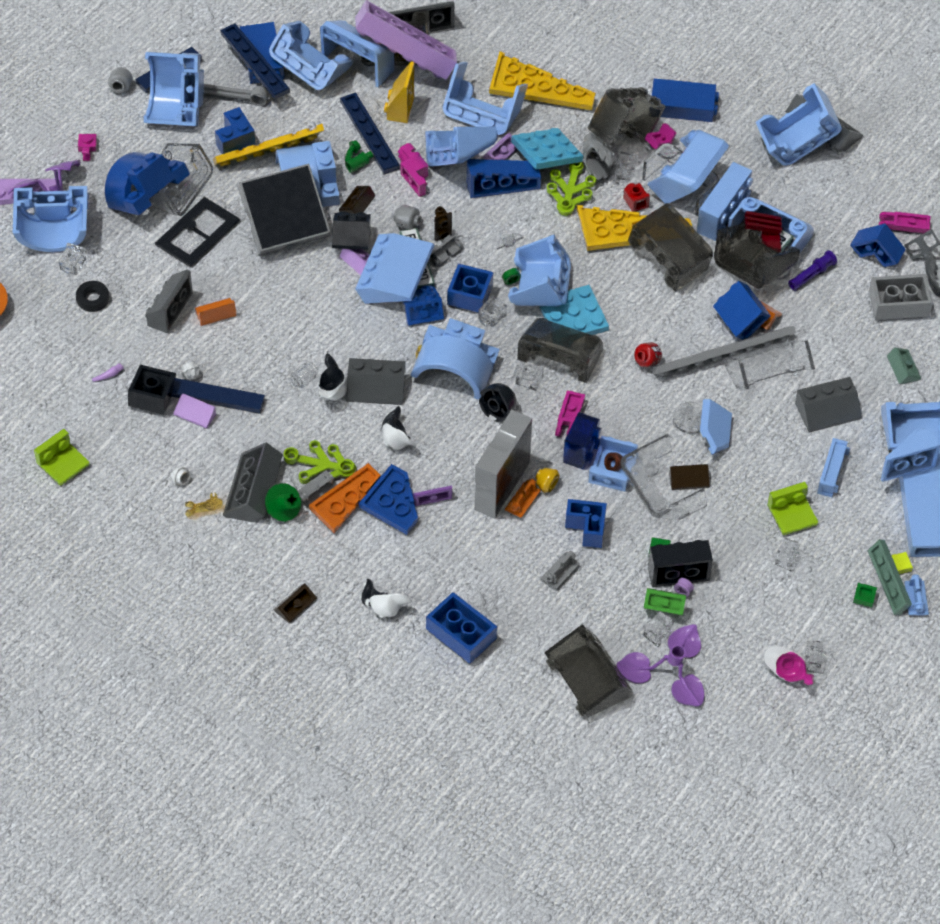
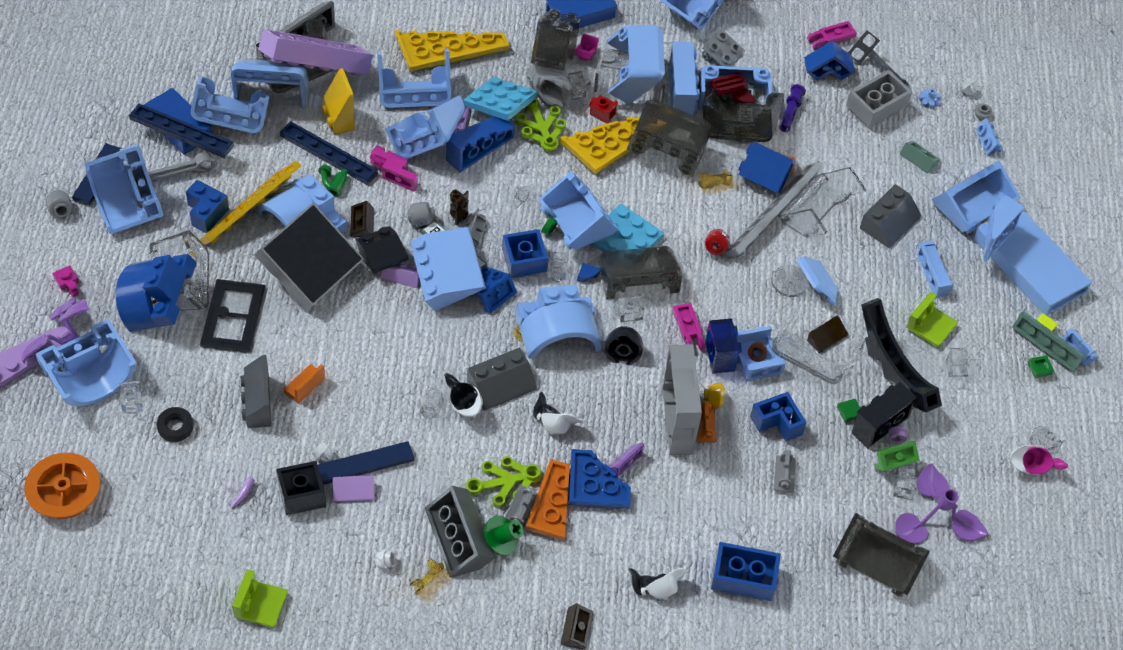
camera: 35 degrees left, 0 degrees up
(515, 329) = (588, 272): none -> blue tile
(685, 301) = (708, 181): none -> clear yellow piece
(726, 519) = (895, 366): none -> black arch
(788, 190) = (722, 48): none -> light grey hinge

